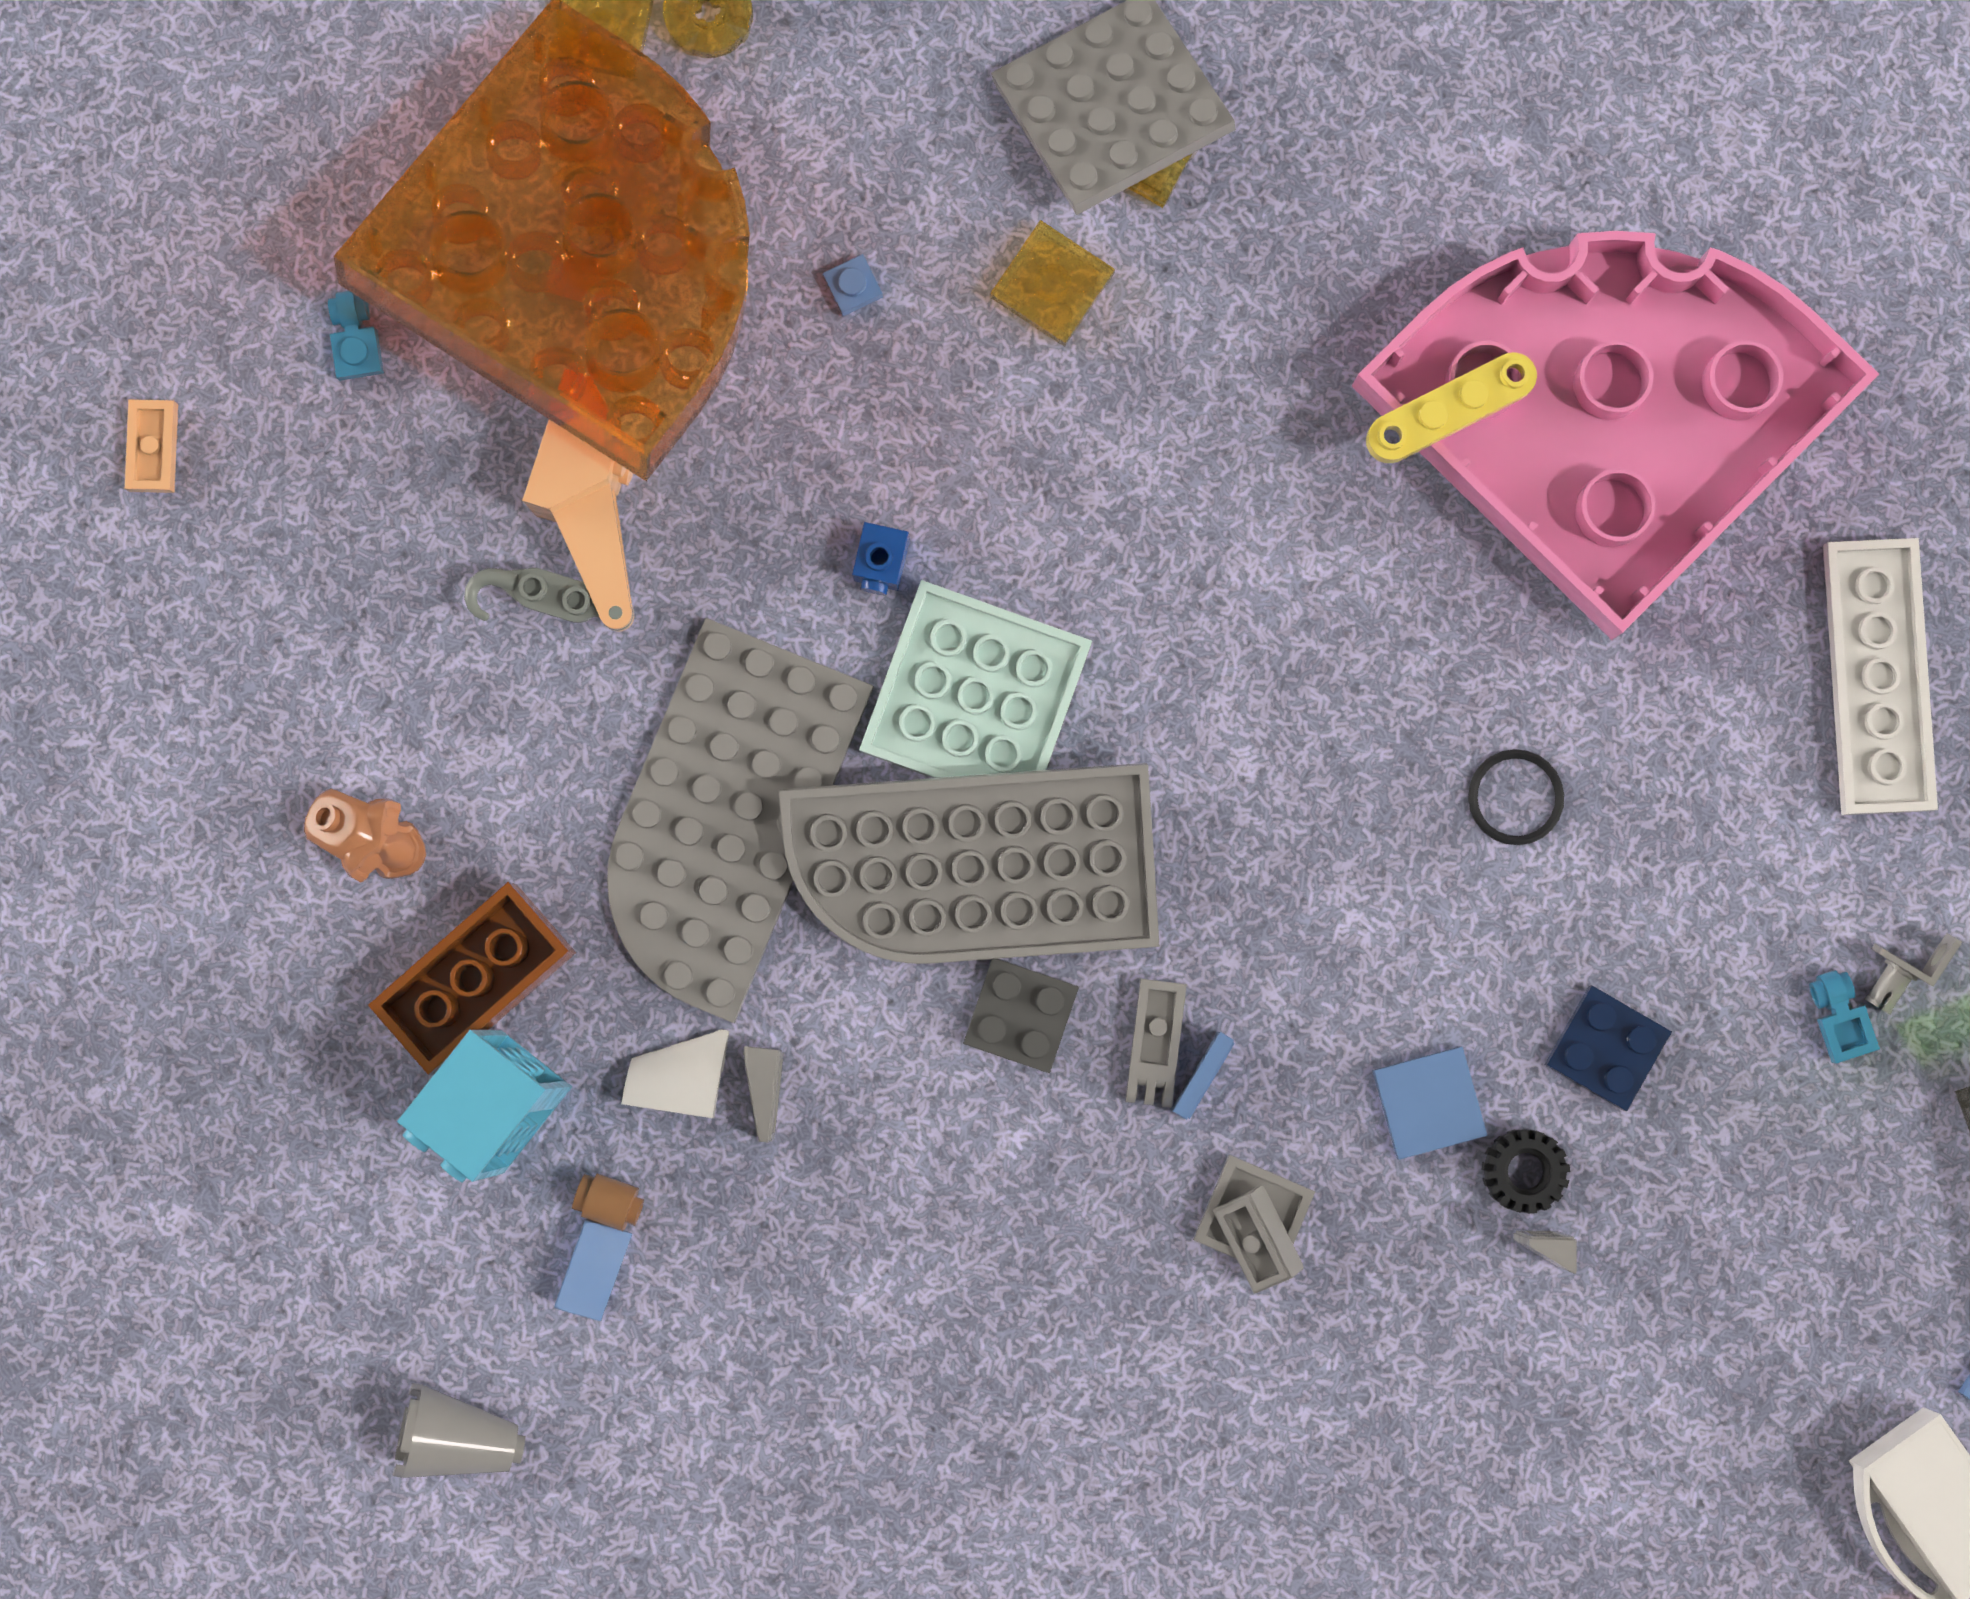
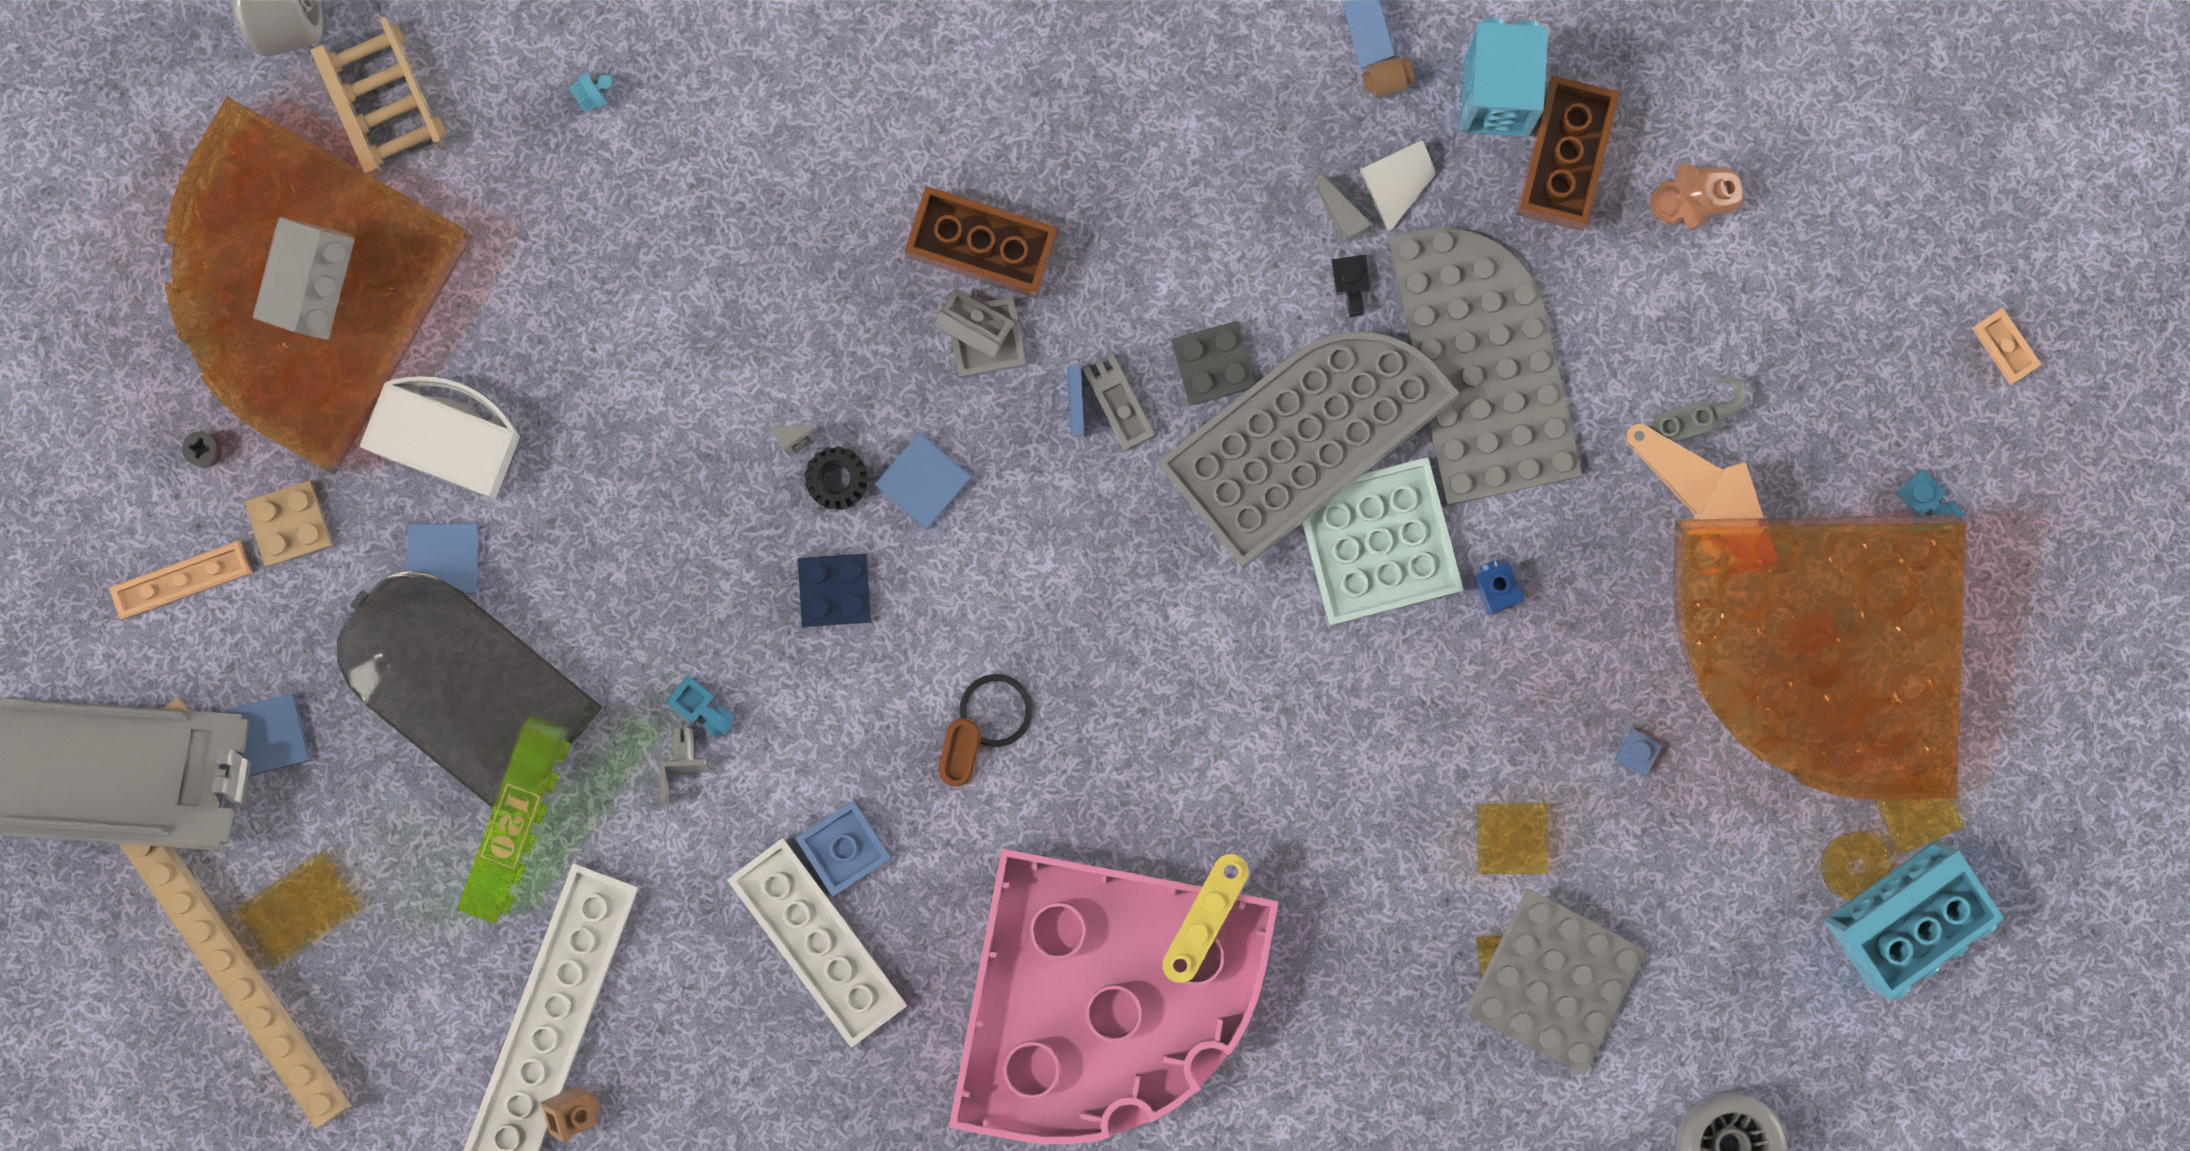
camera: 145 degrees right, 0 degrees up
(805, 1005) = (1351, 278): none -> black plate
(1190, 1326) = (981, 242): none -> dark orange brick
(1587, 777) = (960, 752): none -> dark orange tile
(1785, 758) = (843, 848): none -> medium blue plate

